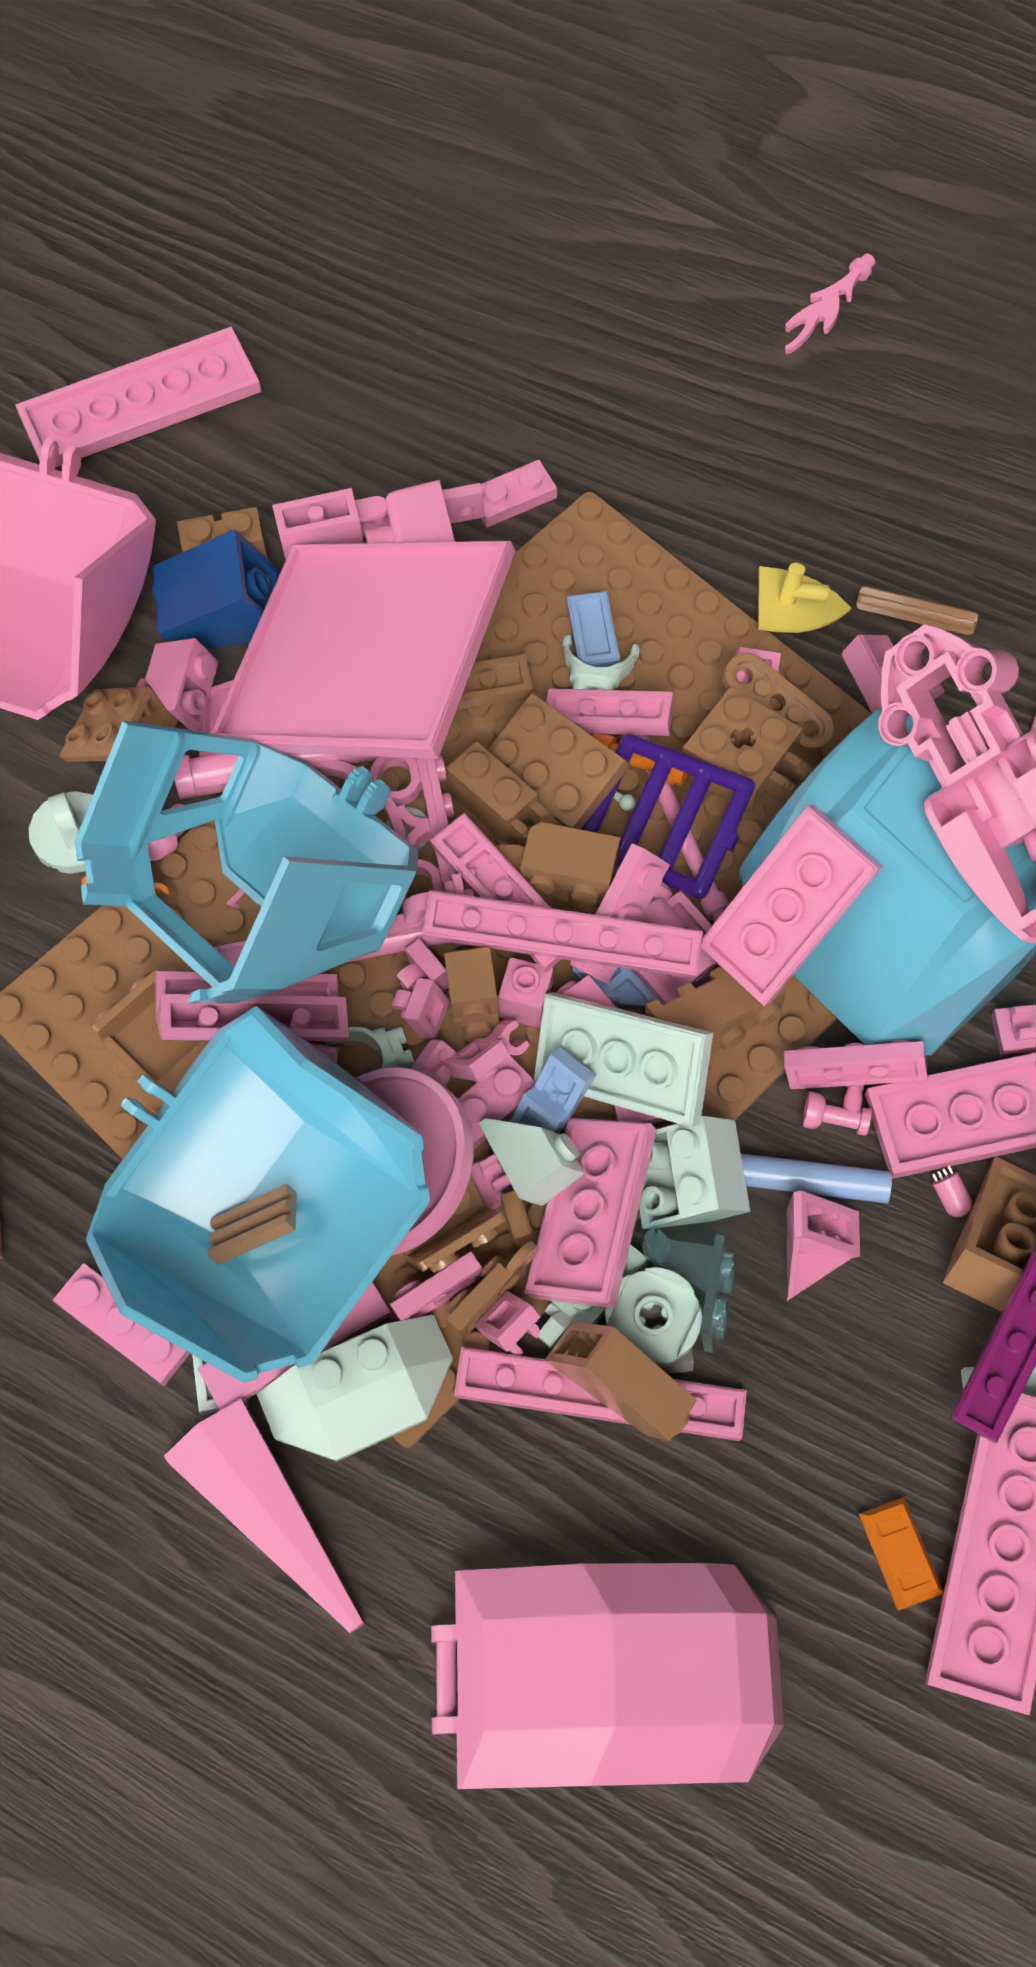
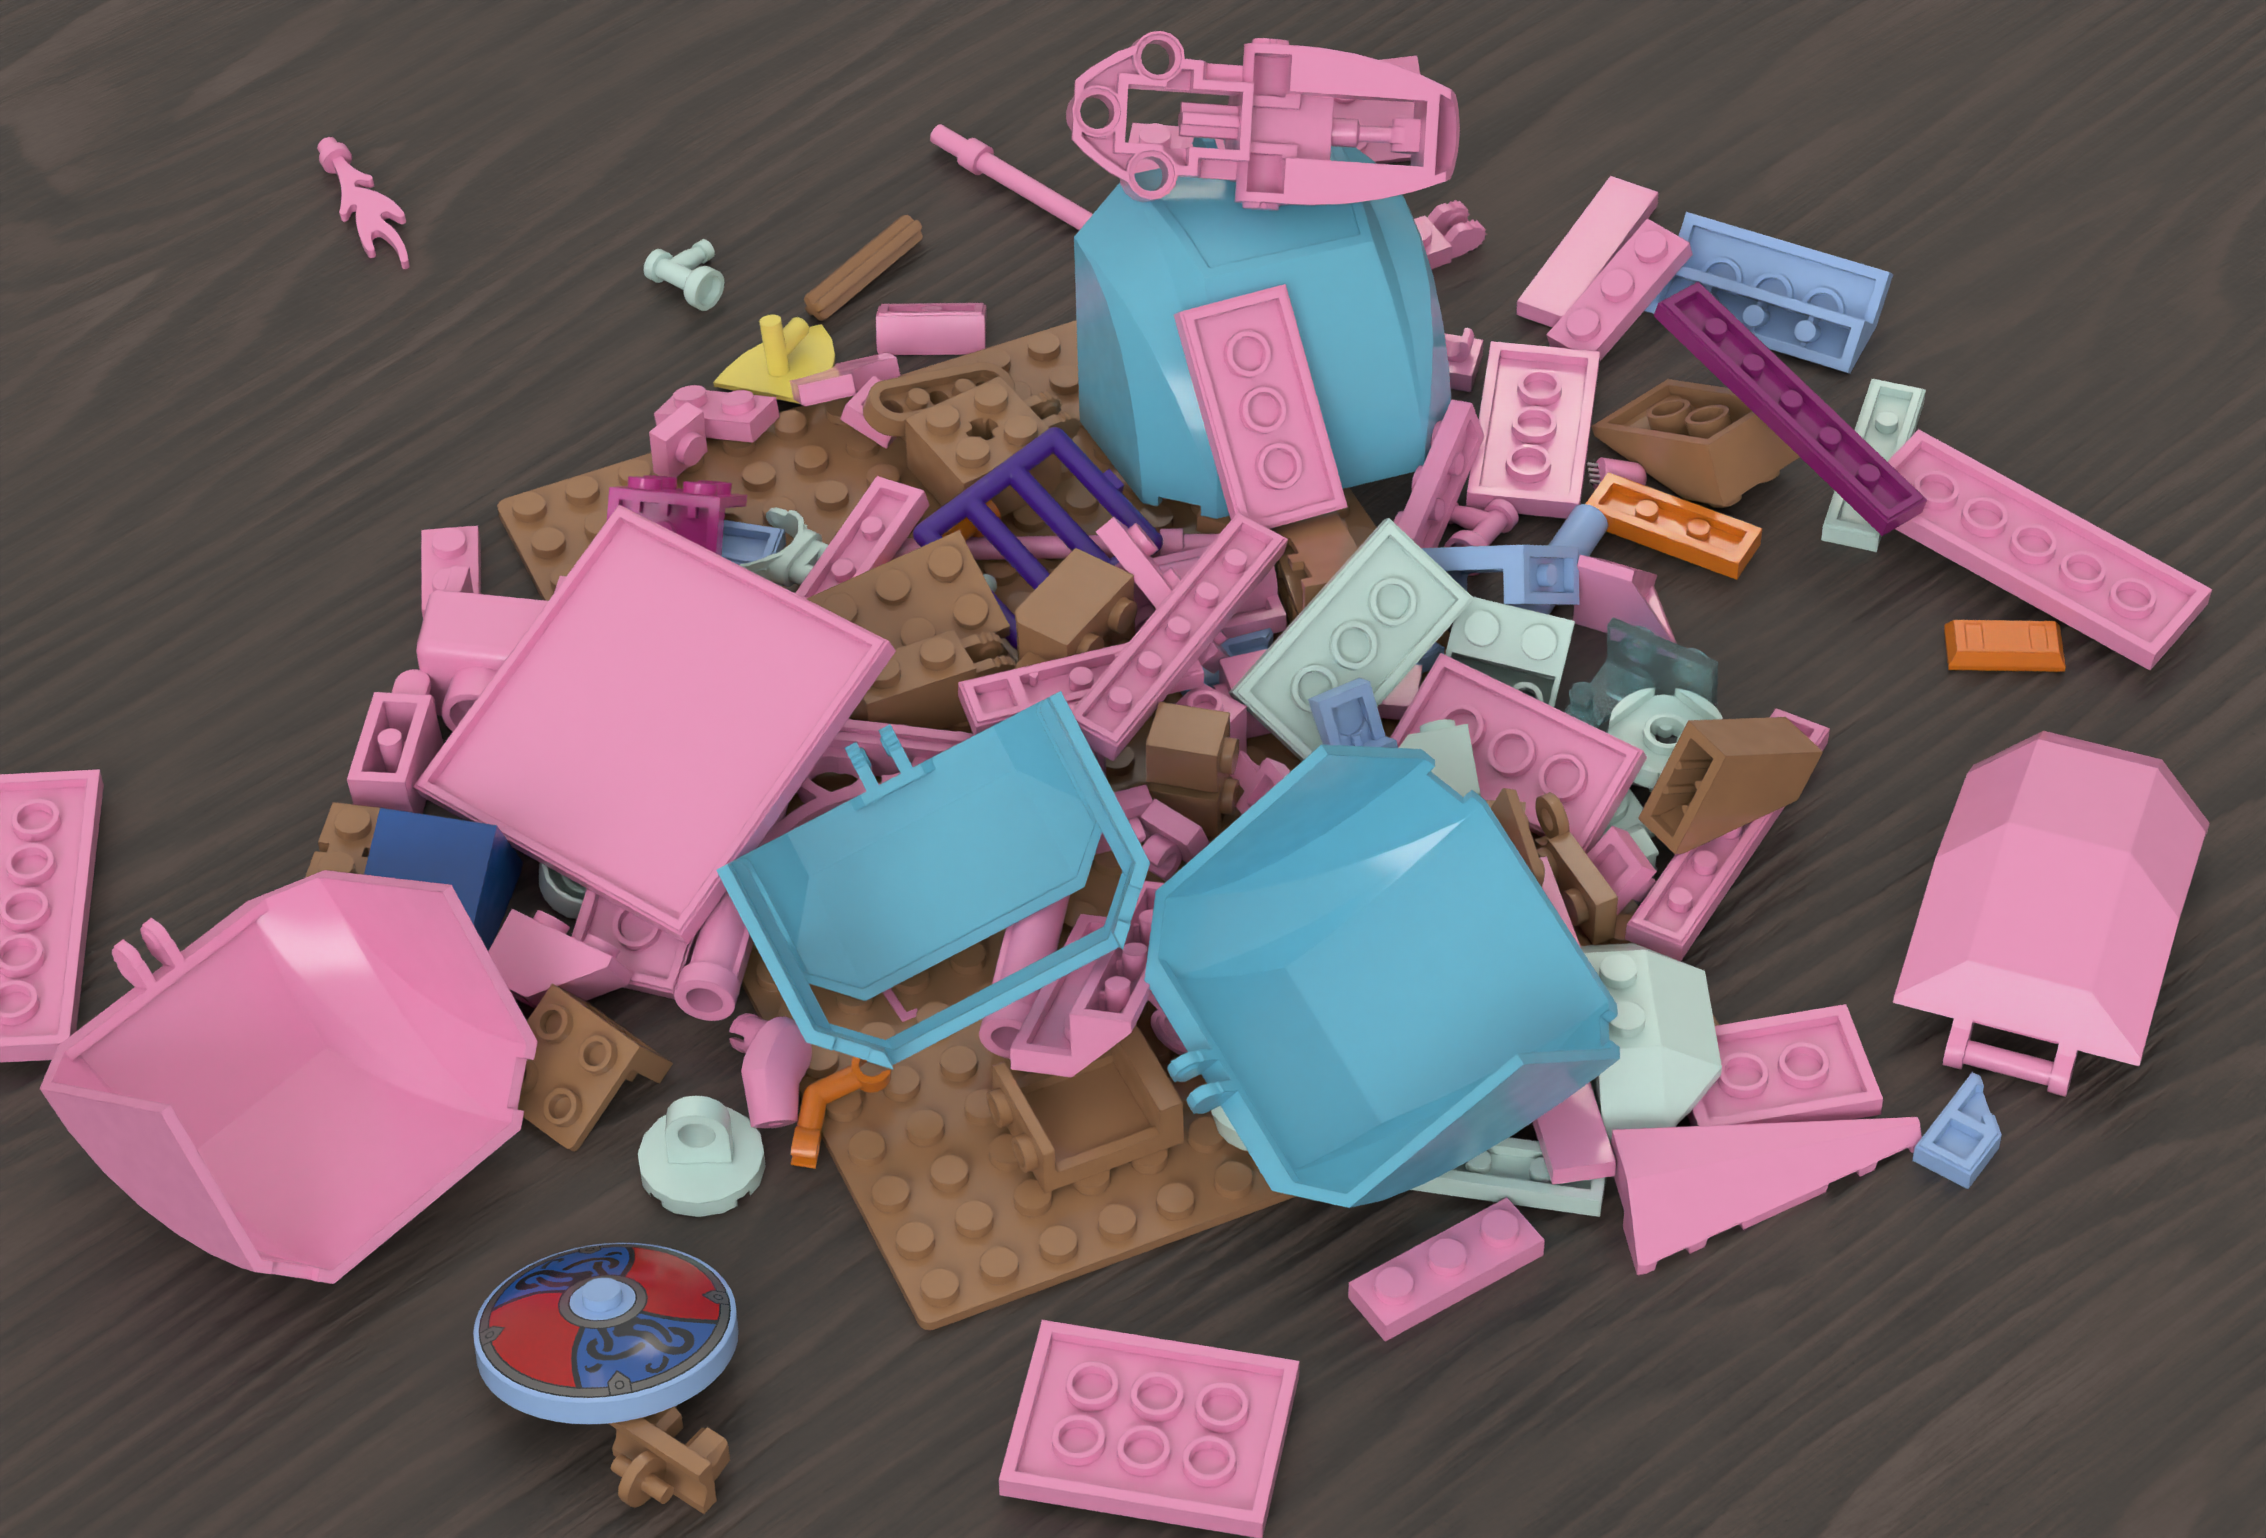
camera: 70 degrees left, 20 degrees down
(253, 1223) = (1374, 1096): medium nougat tile -> none
(366, 1662) = (1961, 1136): none -> light blue tile
(371, 1510) = (1790, 1071): none -> bright pink plate
(590, 581) = (691, 512): none -> dark pink bracket
(668, 565) = (678, 441): none -> bright pink plate
(719, 579) = (726, 414): none -> bright pink plate
(763, 1135) = (1529, 571): none -> light blue panel
(772, 635) = (843, 379): none -> bright pink tile
(843, 521) = (700, 285): none -> light aqua piece
(909, 1252) = (1676, 526): none -> orange plate

